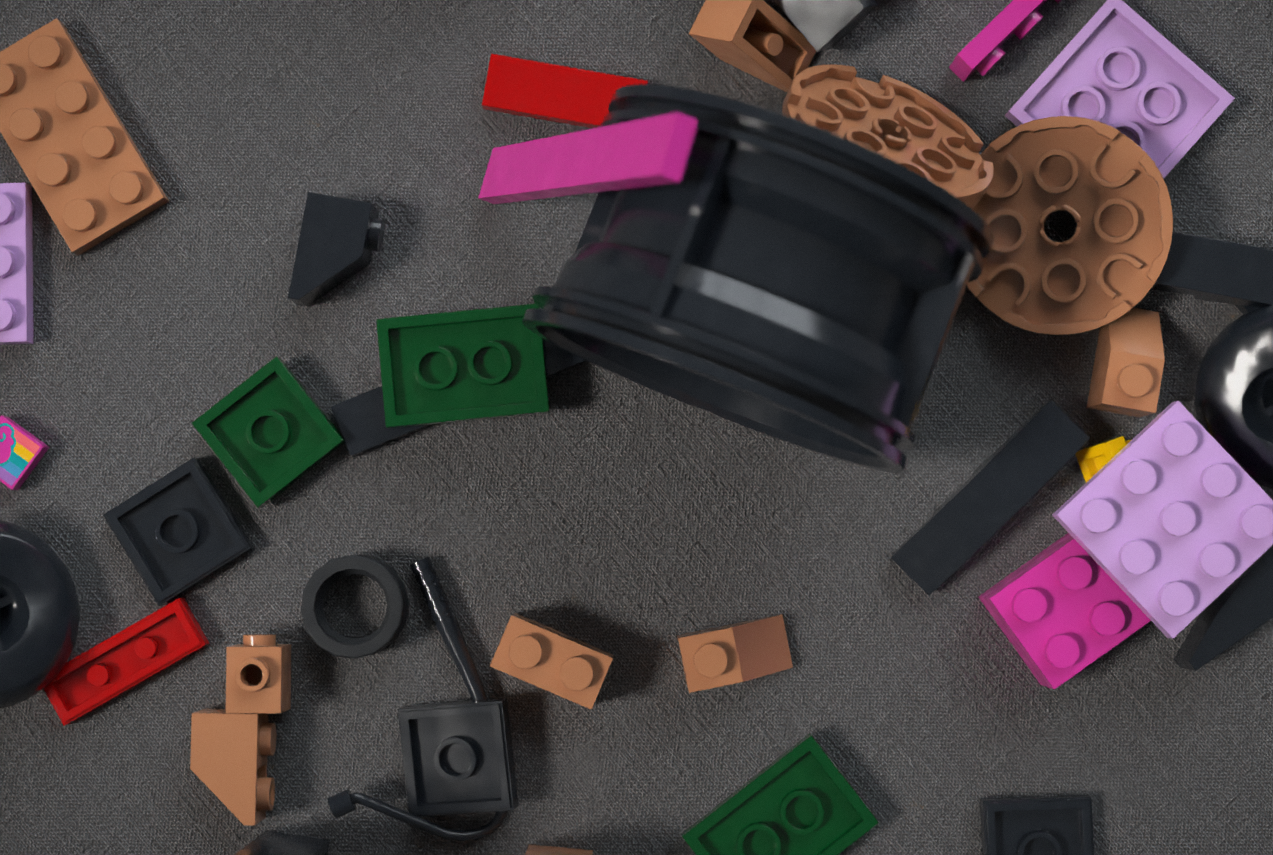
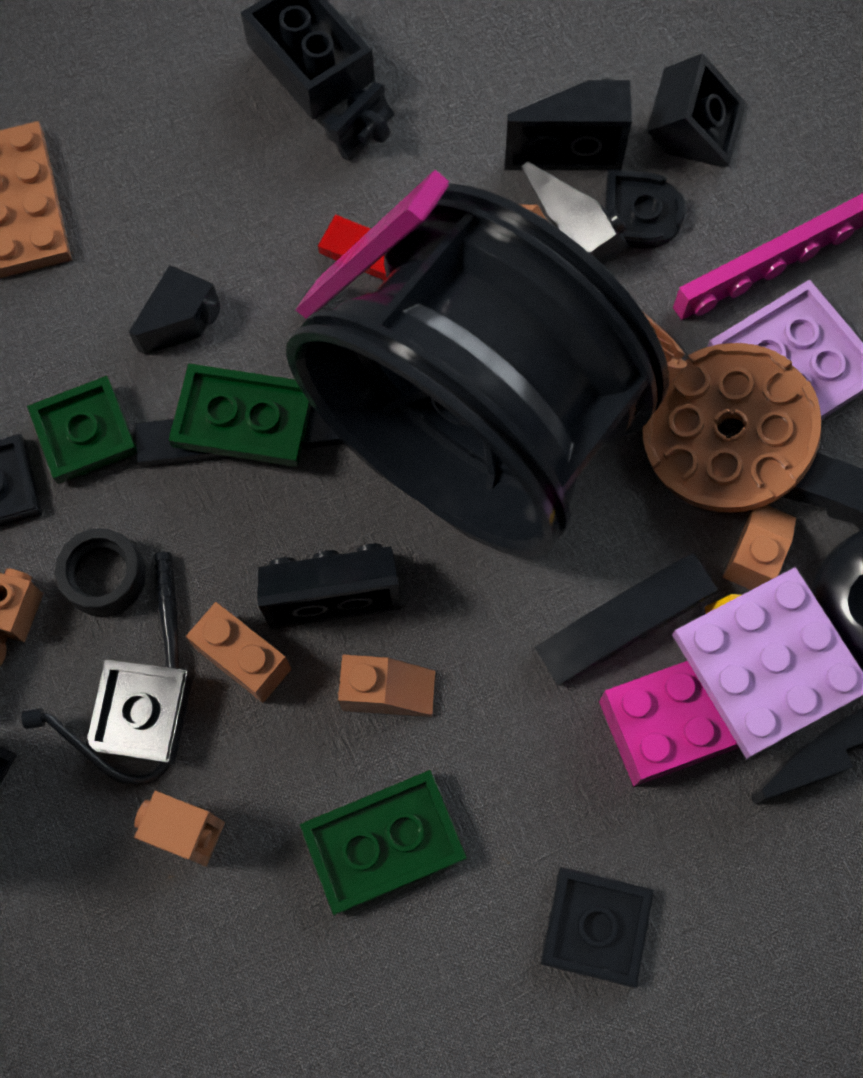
camera: 15 degrees right, 15 degrees down
(633, 550) = (328, 586): none -> black slope

